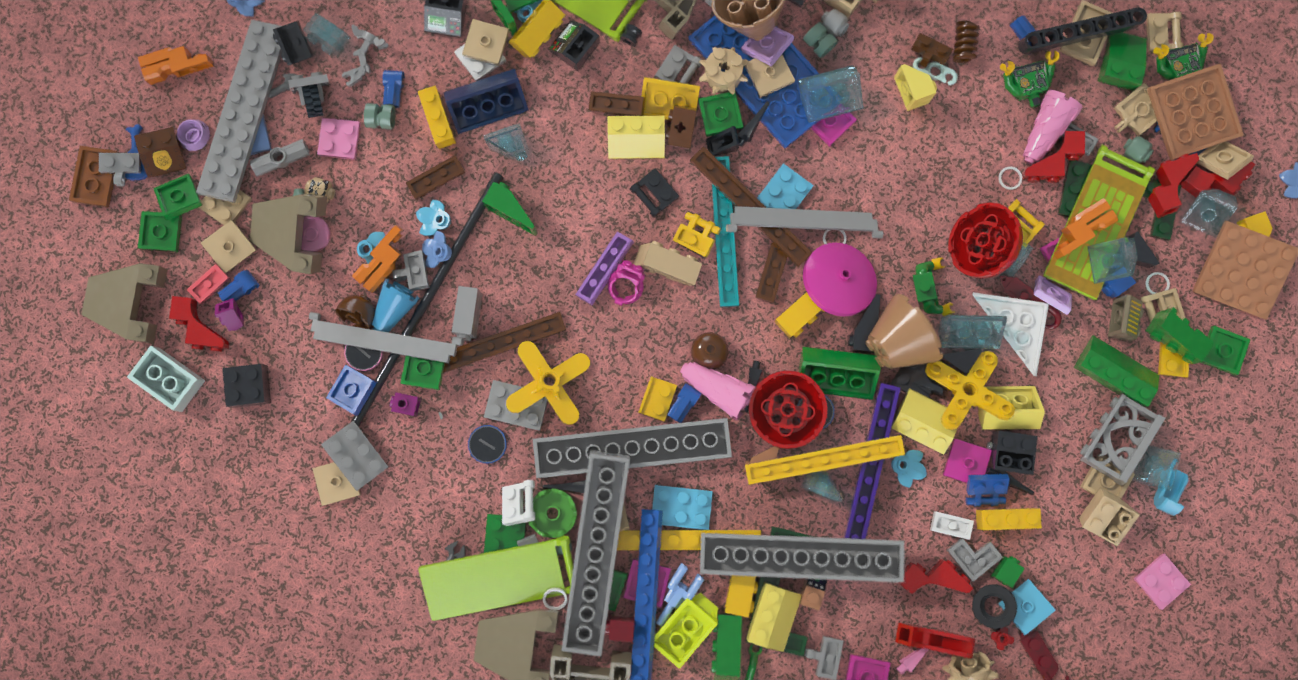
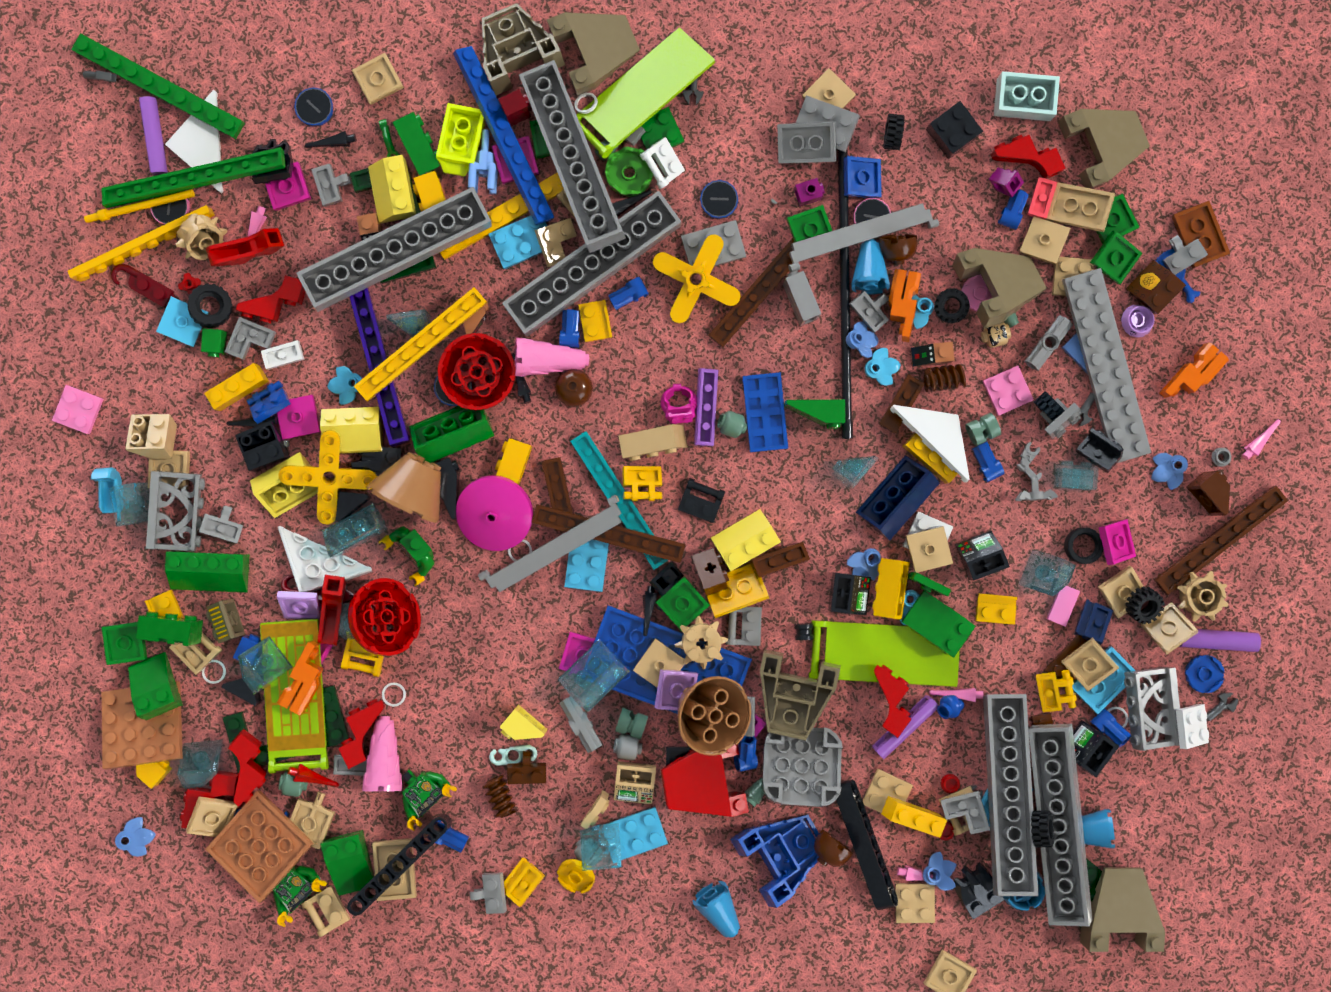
camera: 150 degrees right, 5 degrees up
(180, 255) = (1080, 207): none -> tan plate
(299, 413) = (894, 131): none -> black tyre
(342, 246) = (948, 294): none -> black tyre
(381, 447) = (806, 142): none -> light grey plate
(383, 203) = (932, 354): none -> slope
(386, 179) = (943, 377): none -> reddish brown piece
(419, 131) = (939, 433): none -> white tile
(548, 61) = (862, 565): none -> medium blue plate
(556, 236) = (765, 412): none -> blue plate
(590, 241) = (732, 424): none -> sand green head
(614, 405) = (630, 292): none -> blue piece
(656, 492) = (551, 238): none -> tan plate
(864, 61) = (580, 724): none -> light grey piece
(1028, 273) = (332, 607): none -> red arch
(1086, 402) = (221, 527): none -> light grey plate
(1124, 150) = (304, 774): none -> red piece
(1219, 296) = (153, 687): none -> green slope

